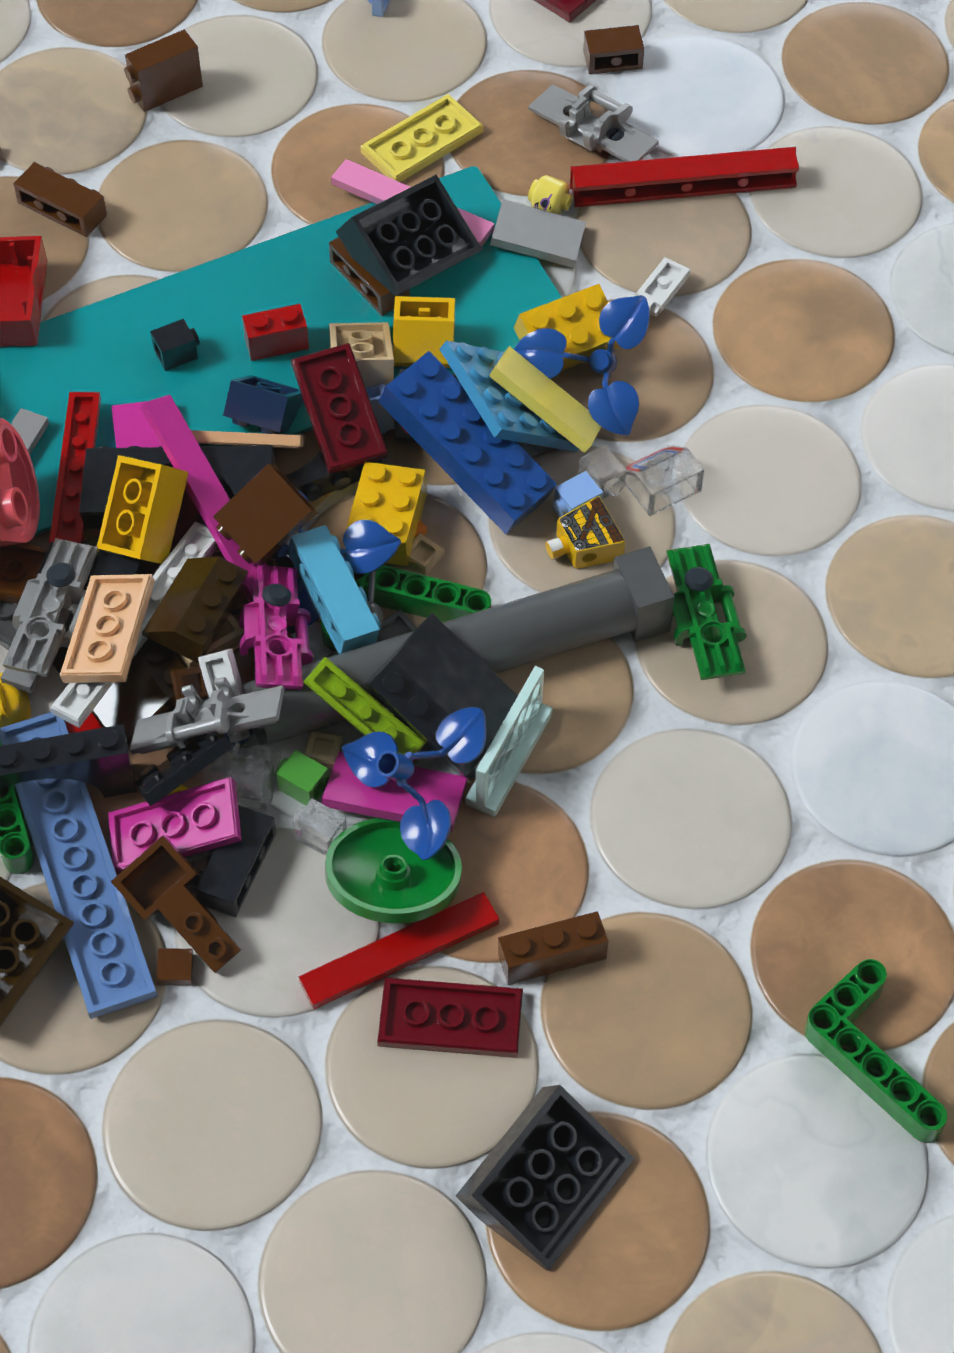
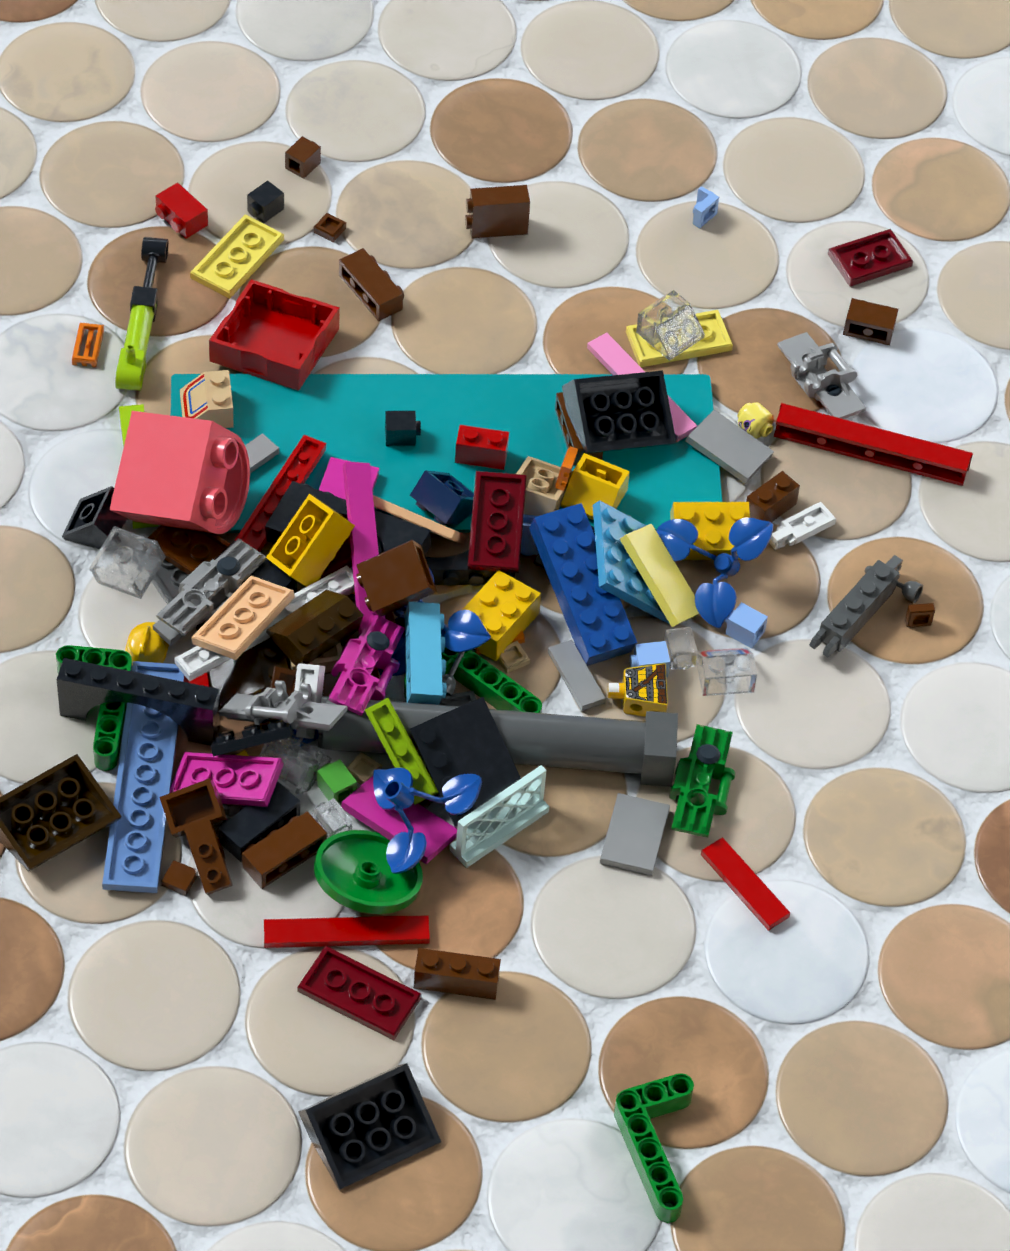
camera: 20 degrees right, 5 degrees down
(281, 882) = (283, 849): none -> reddish brown brick
(383, 320) = (566, 468): none -> orange tile
(411, 126) = (670, 325): none -> clear slope
(504, 547) = (576, 675): none -> light grey tile
(616, 269) = (773, 498): none -> reddish brown brick
(657, 420) = (746, 625): none -> light blue brick
(660, 701) = (634, 834): none -> light grey tile
(764, 353) = (858, 606): none -> dark grey hinge
(805, 316) = (911, 590): none -> dark grey hinge
(808, 708) = (745, 883): none -> red tile
(831, 339) = (920, 615): none -> reddish brown tile

